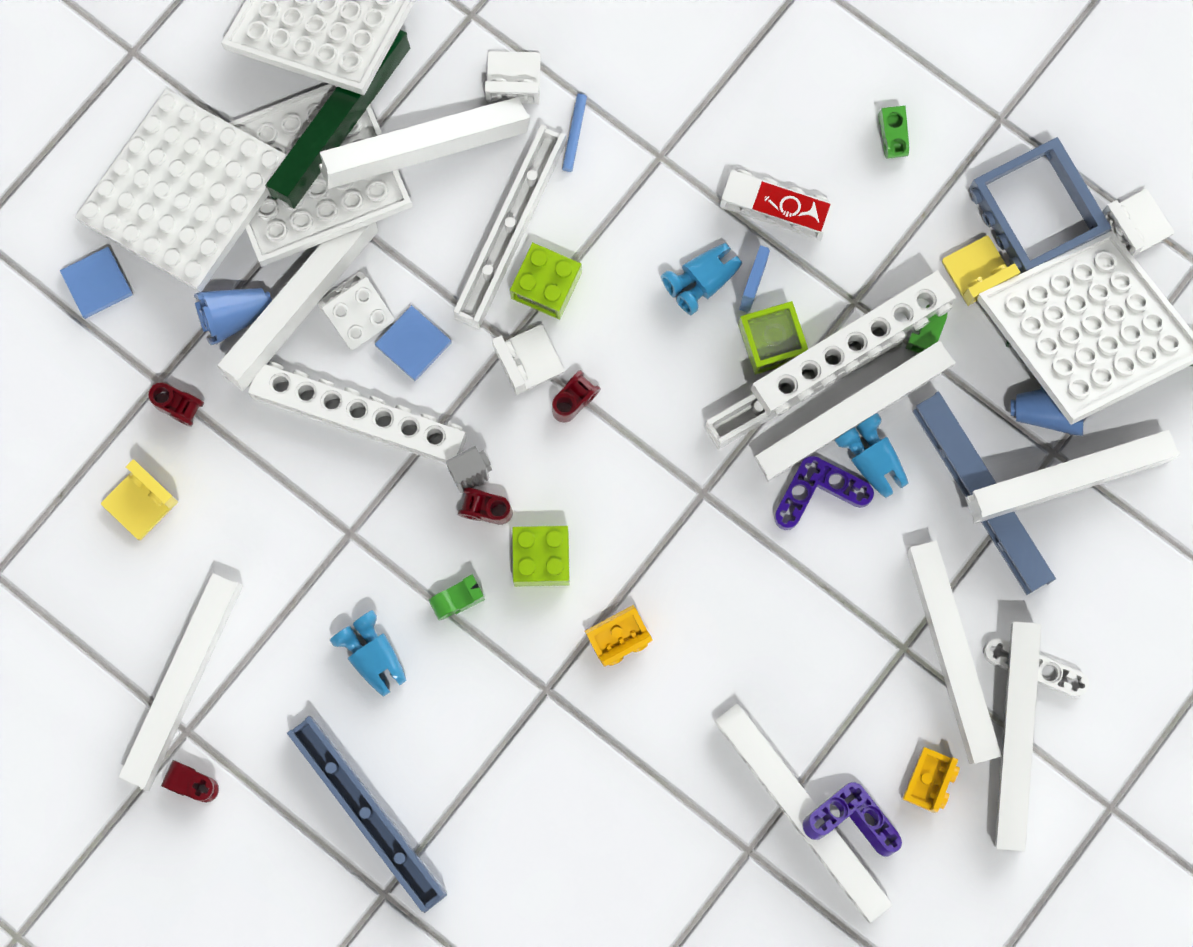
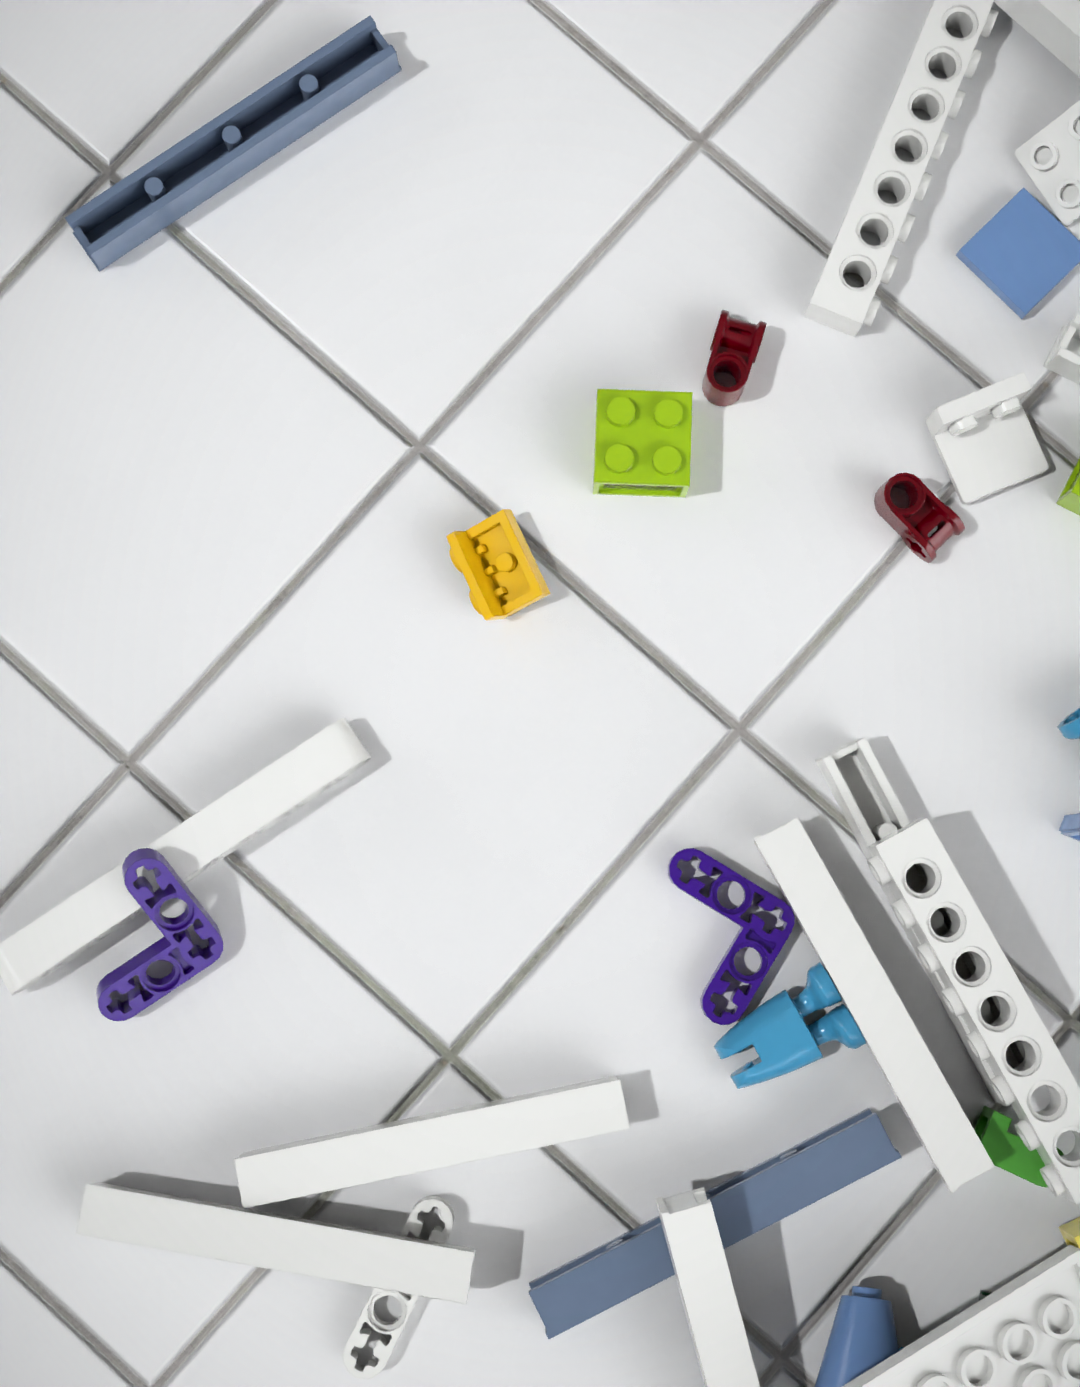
camera: 95 degrees right, 5 degrees up
(374, 656) = (490, 165): dark azure piece -> none
(456, 598) = (579, 305): bright green leg -> none
(469, 468) = (797, 326): light grey brick -> none
(772, 337) = (1013, 865): piece -> none
(931, 780) = (215, 1082): yellow bracket -> none

